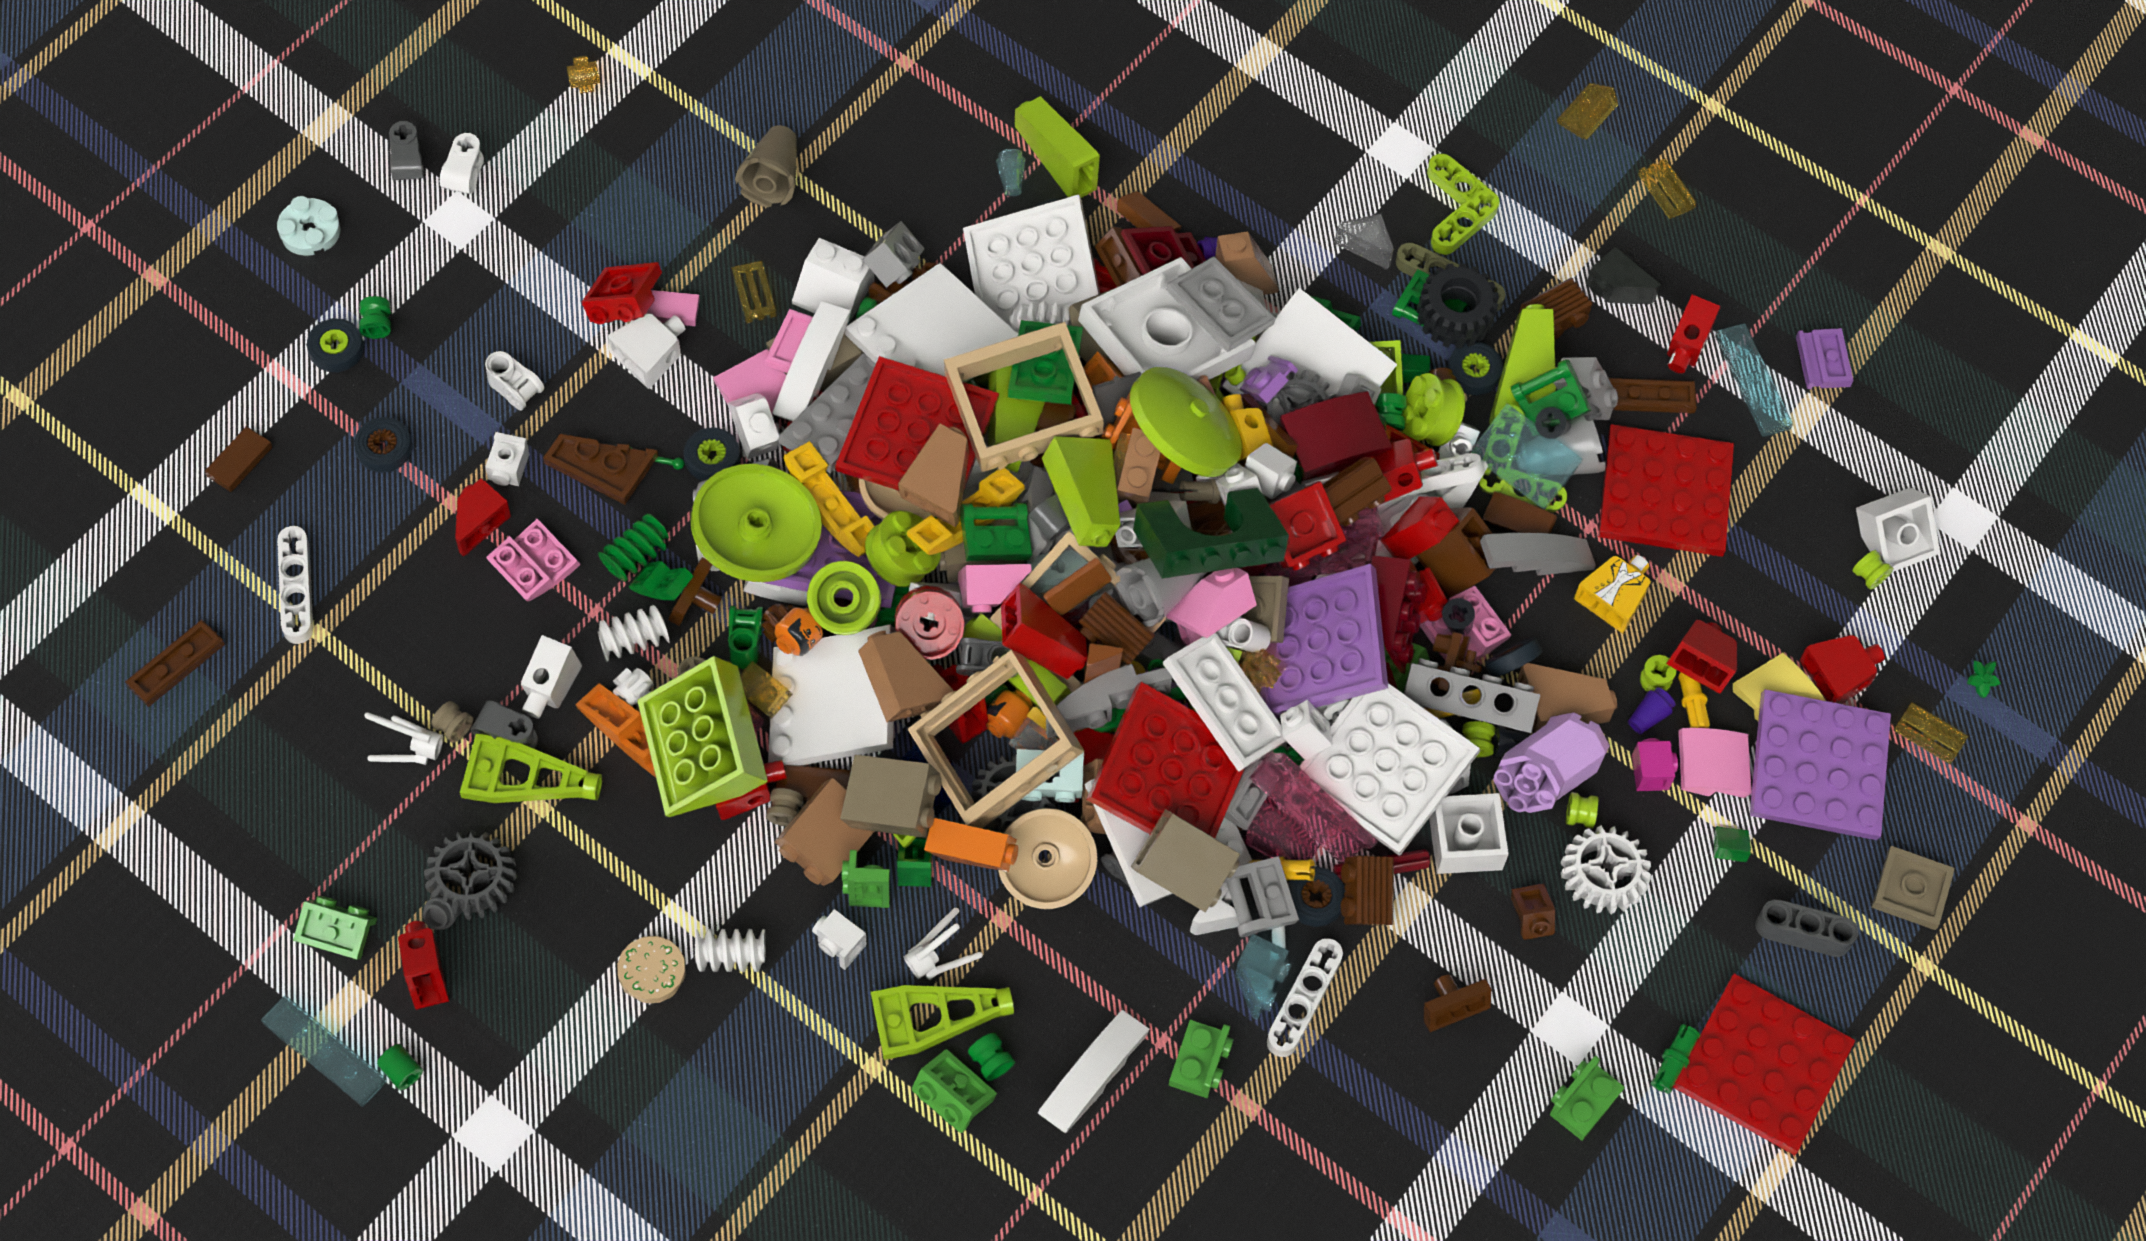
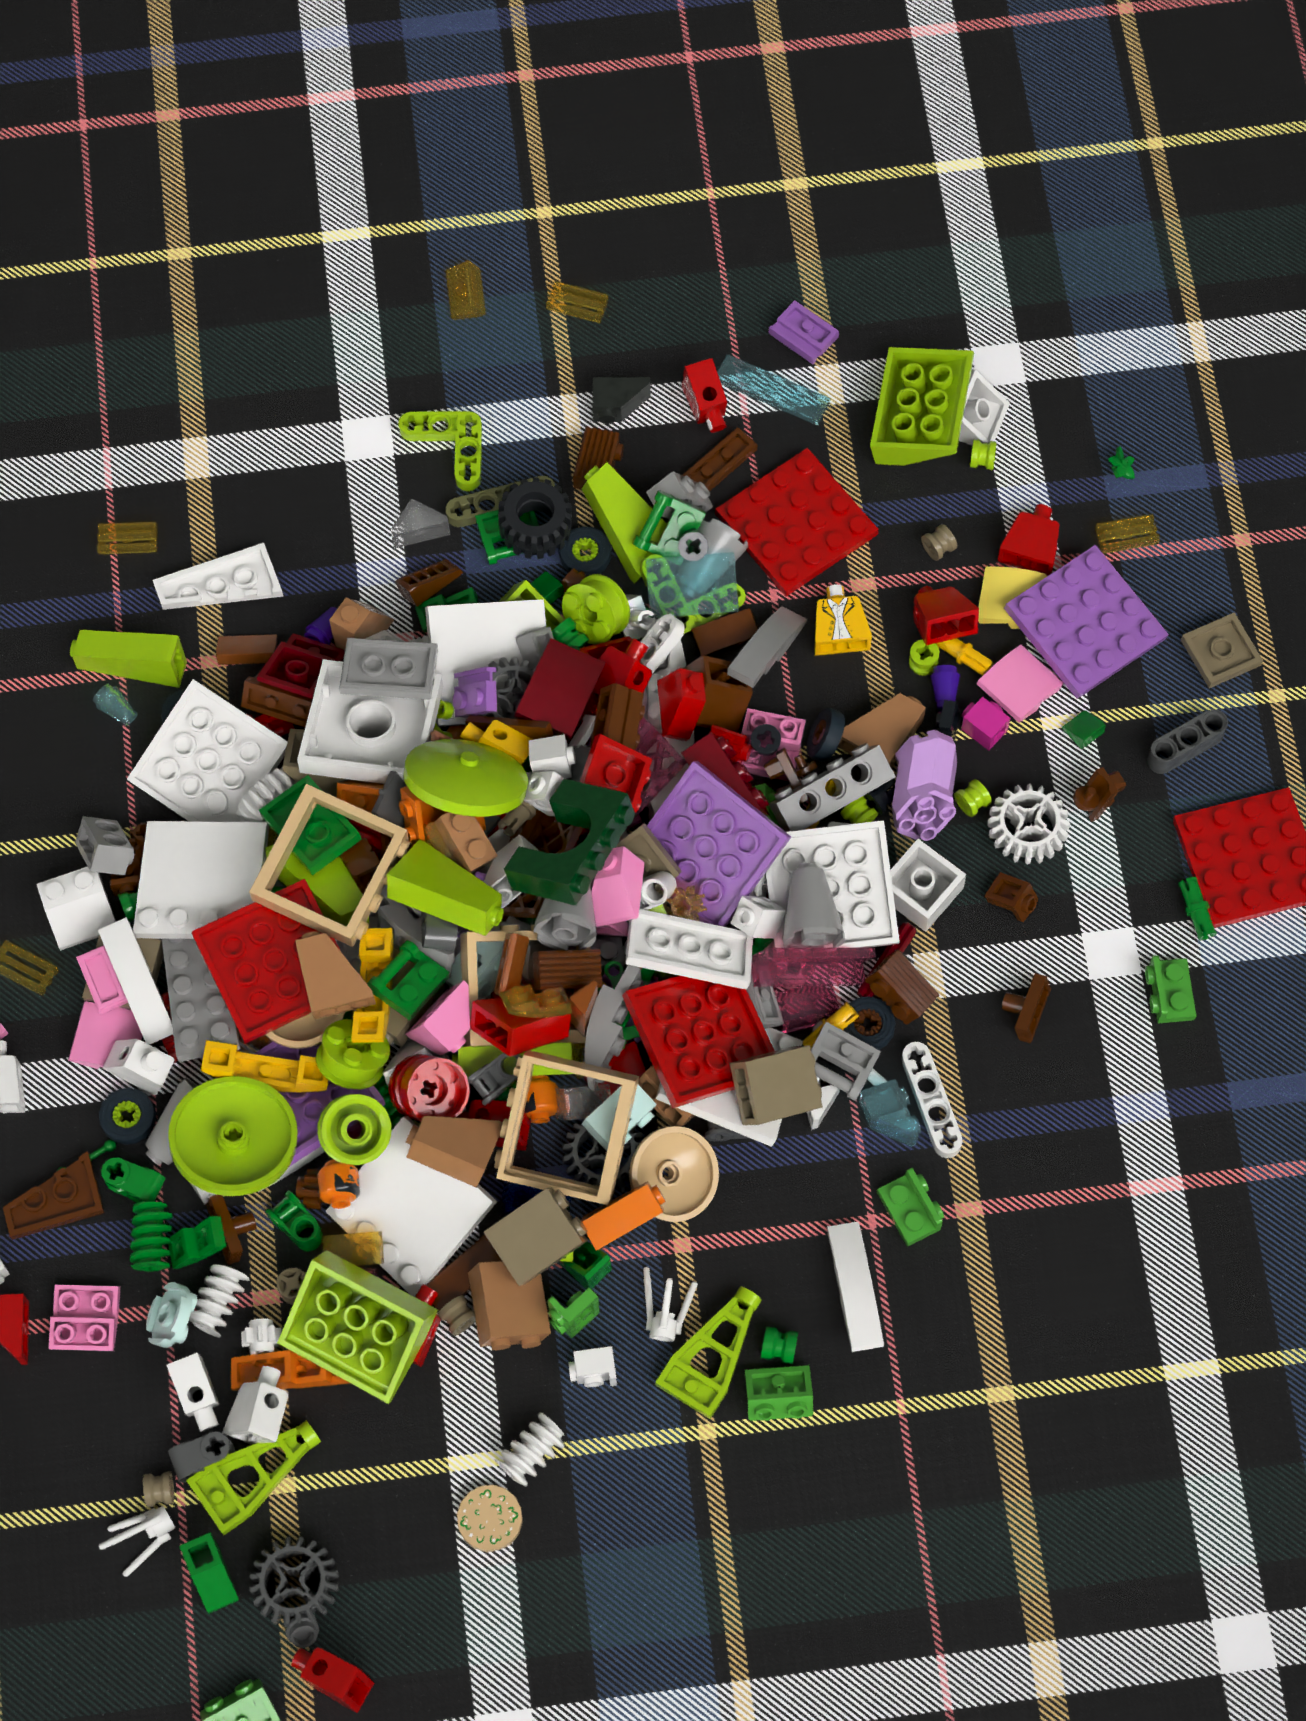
camera: 40 degrees left, 5 degrees up
(421, 808) = (209, 1572): none -> green slope
(561, 733) = (258, 1409): none -> white torso
(588, 610) = (170, 1315): none -> light aqua plate
(665, 501) = (137, 1183): none -> green piece
(1037, 716) = (568, 1081): yellow tile -> none
(1055, 616) = (525, 1003): none -> clear yellow slope
(1150, 65) = (127, 533): none -> clear yellow tile
(1183, 155) = (227, 579): none -> white wing
(1330, 284) = (426, 582): none -> reddish brown slope
(1349, 760) = (811, 911): none -> light grey cone
(1624, 738) = (948, 719): none -> black plate
(1686, 896) = (1098, 792): none -> reddish brown hips
(1764, 602) = (939, 542): none -> dark tan wheel
(1855, 484) = (920, 405): none -> lime slope

